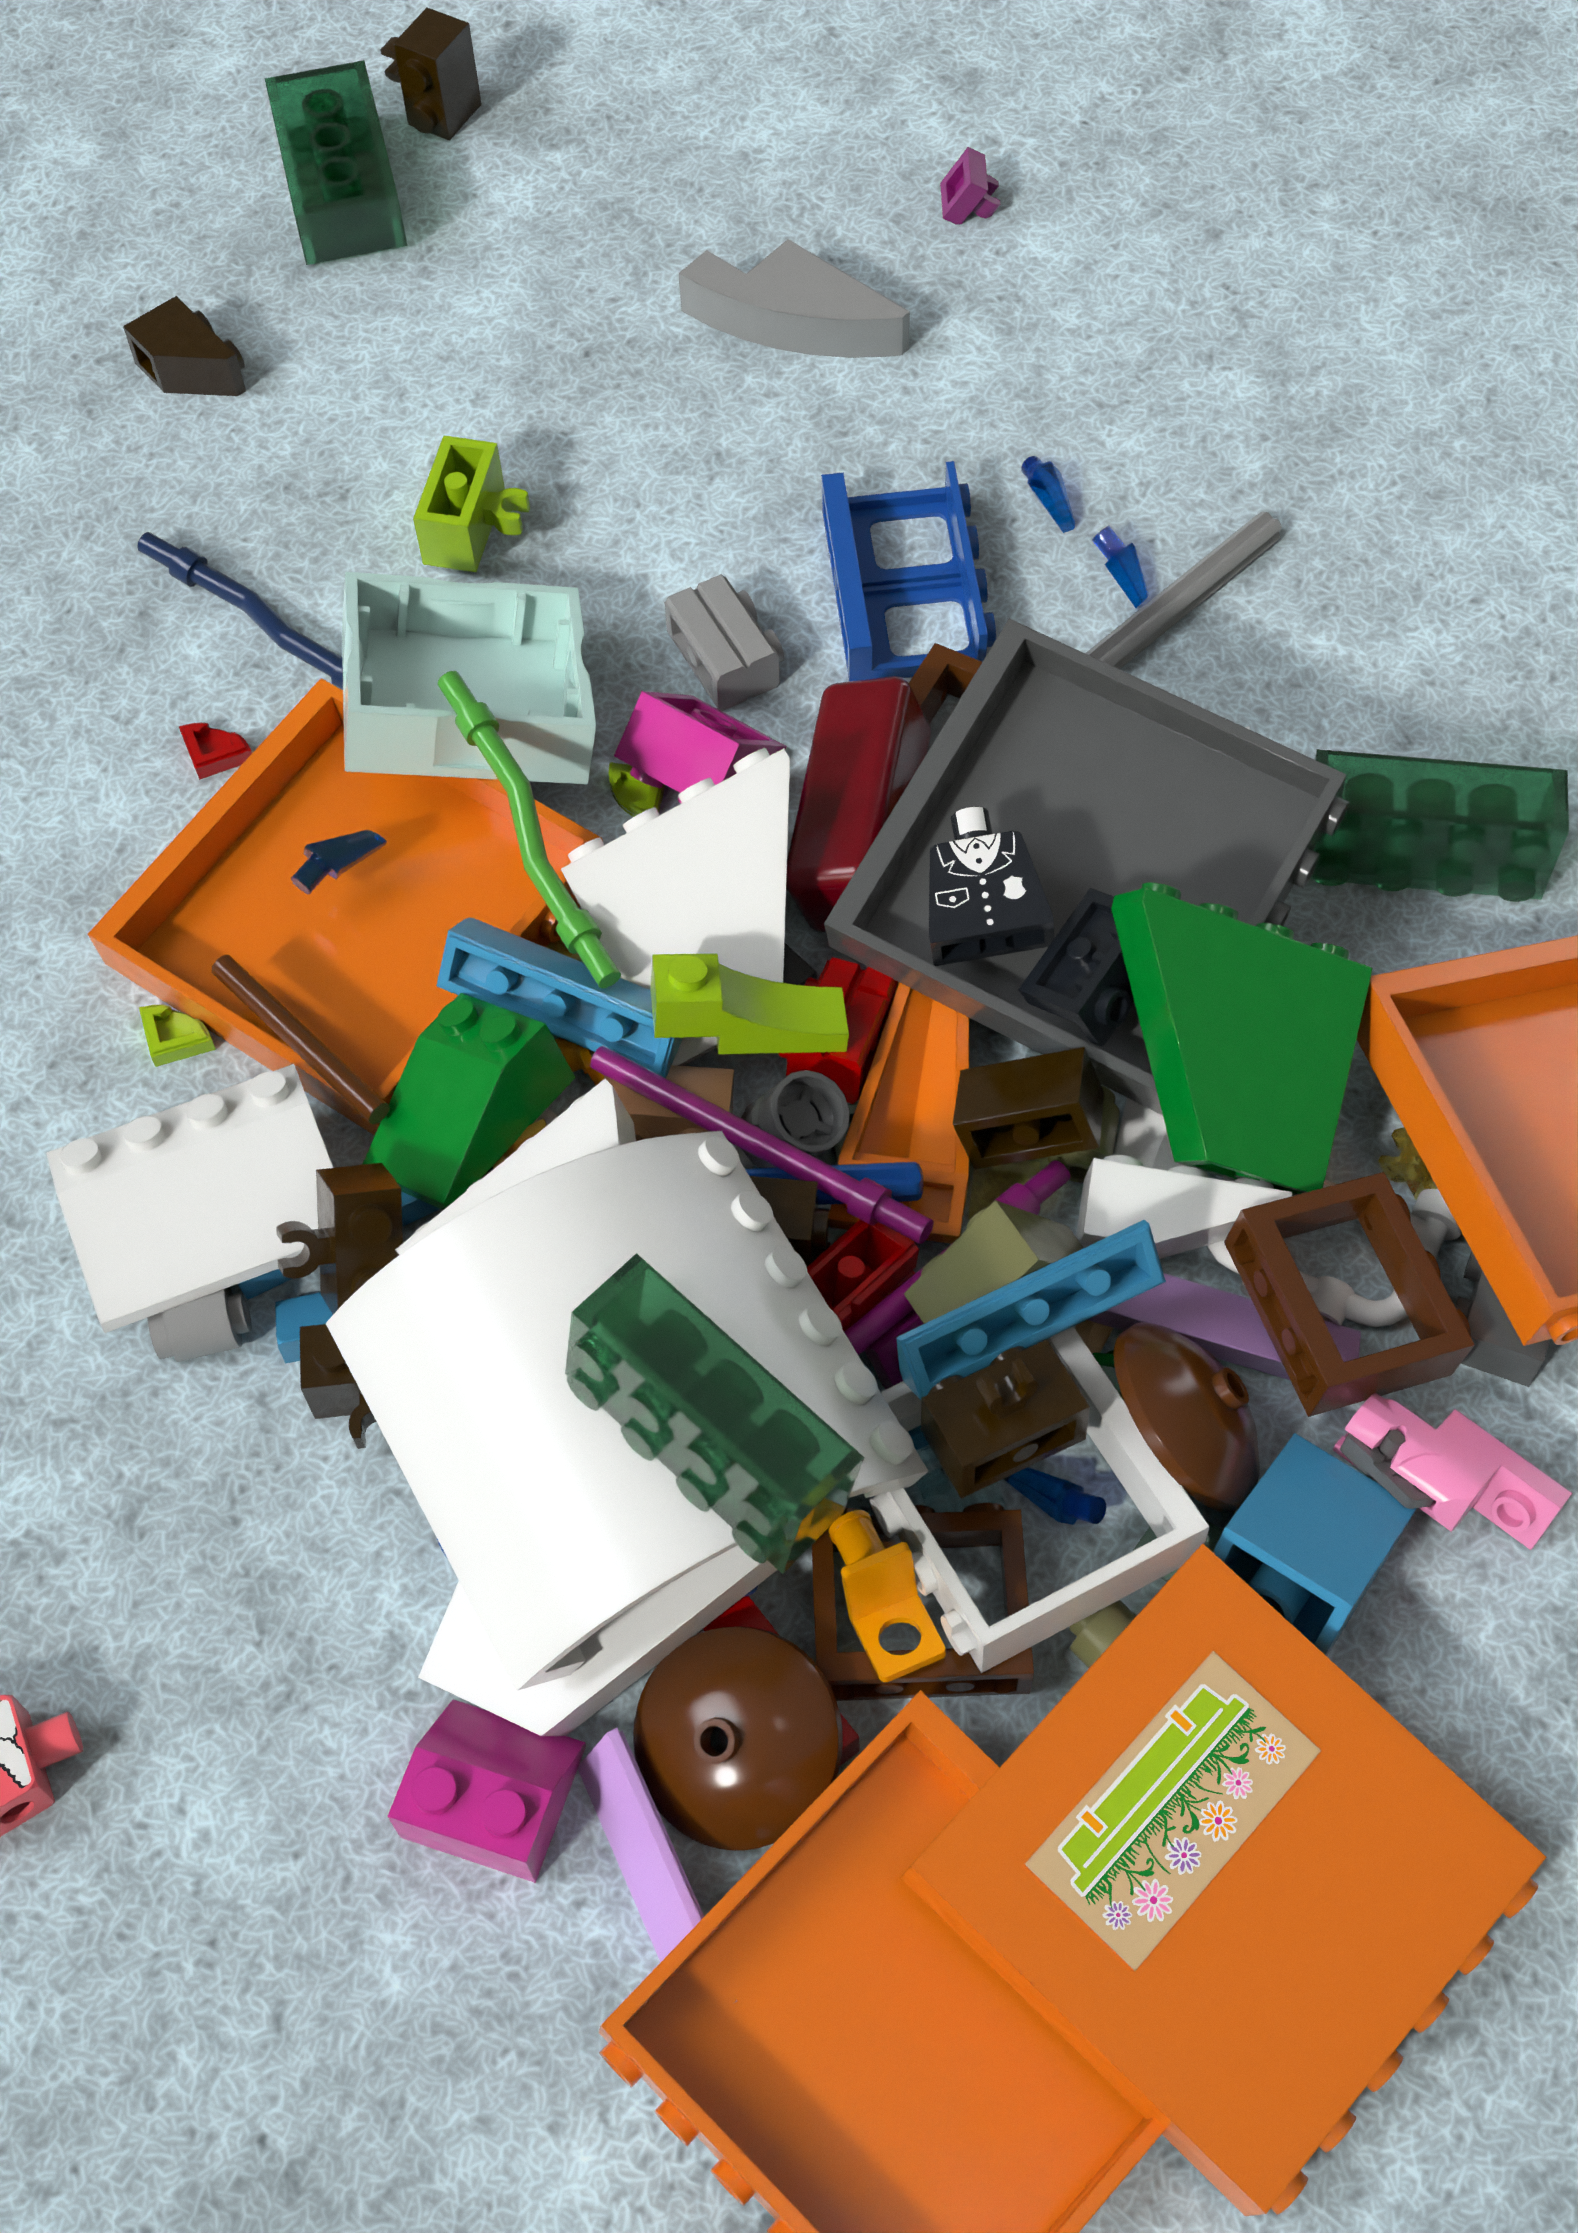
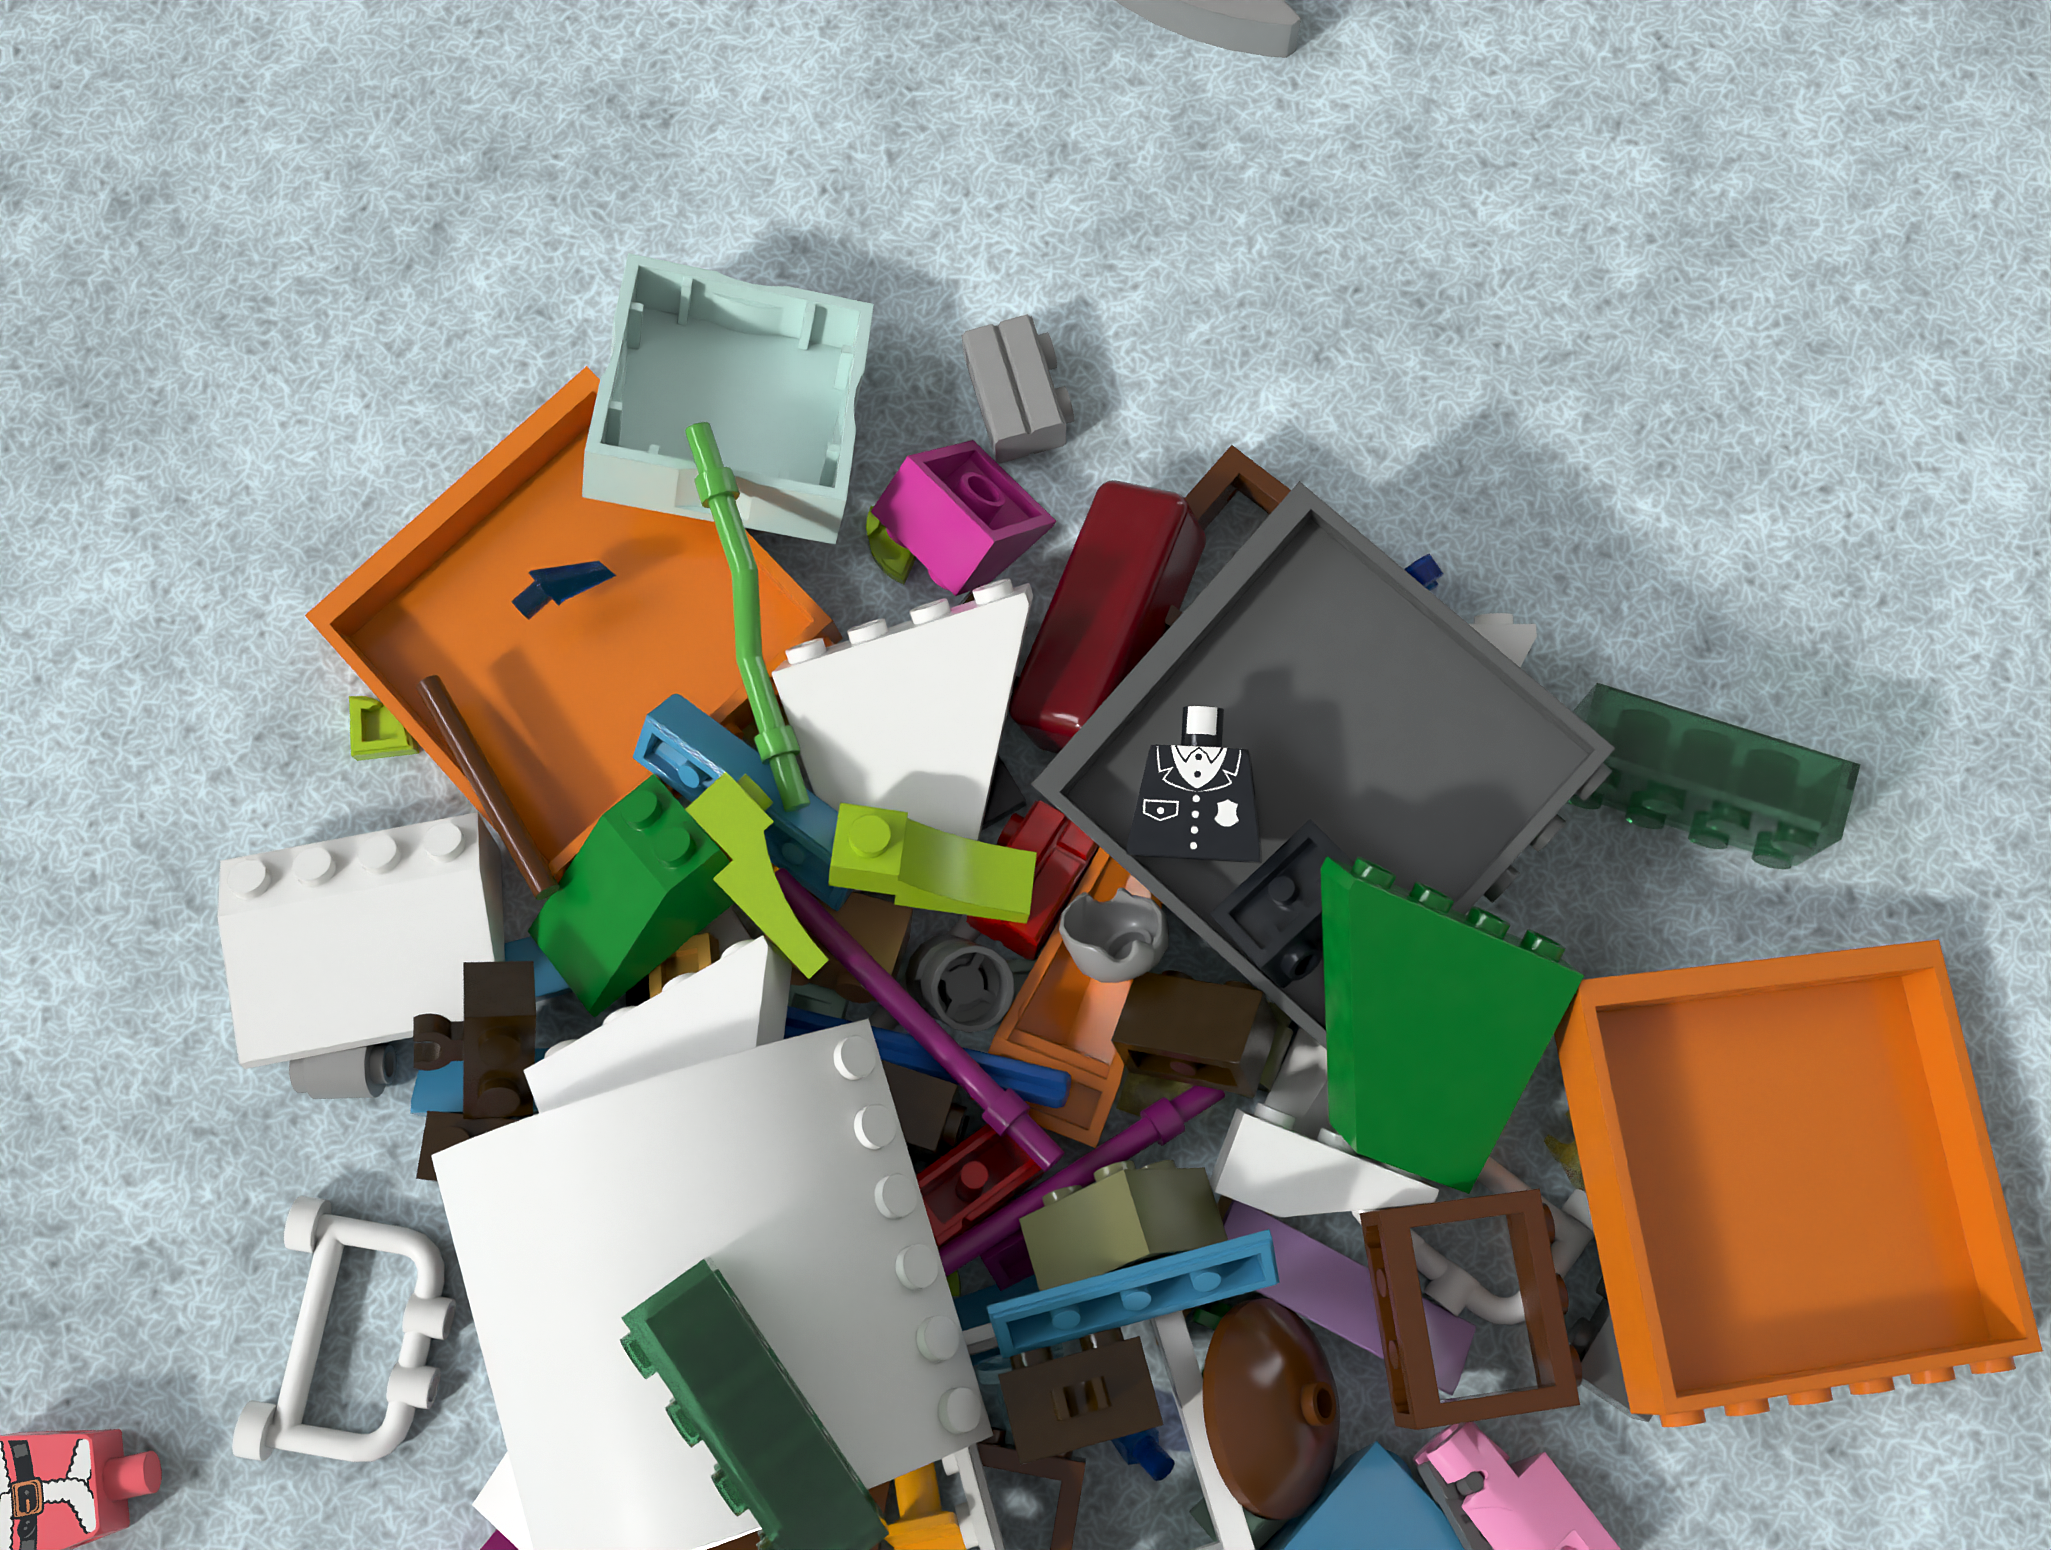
camera: 15 degrees right, 15 degrees up
(193, 569) = (495, 187): dark blue bar -> none
(213, 749) = (476, 406): red tile -> none
(326, 1596) = (411, 1382): none -> white bar
(463, 503) = (780, 169): lime brick -> none
(556, 990) = (736, 821): none -> lime slope
(868, 591) = (1185, 347): blue window -> none
(936, 1046) = (1114, 937): none -> light grey hair
(1050, 491) = (1402, 264): clear blue bar -> none
(1123, 565) = (1458, 375): clear blue bar -> none
(1187, 591) = (1490, 437): light grey axle -> none

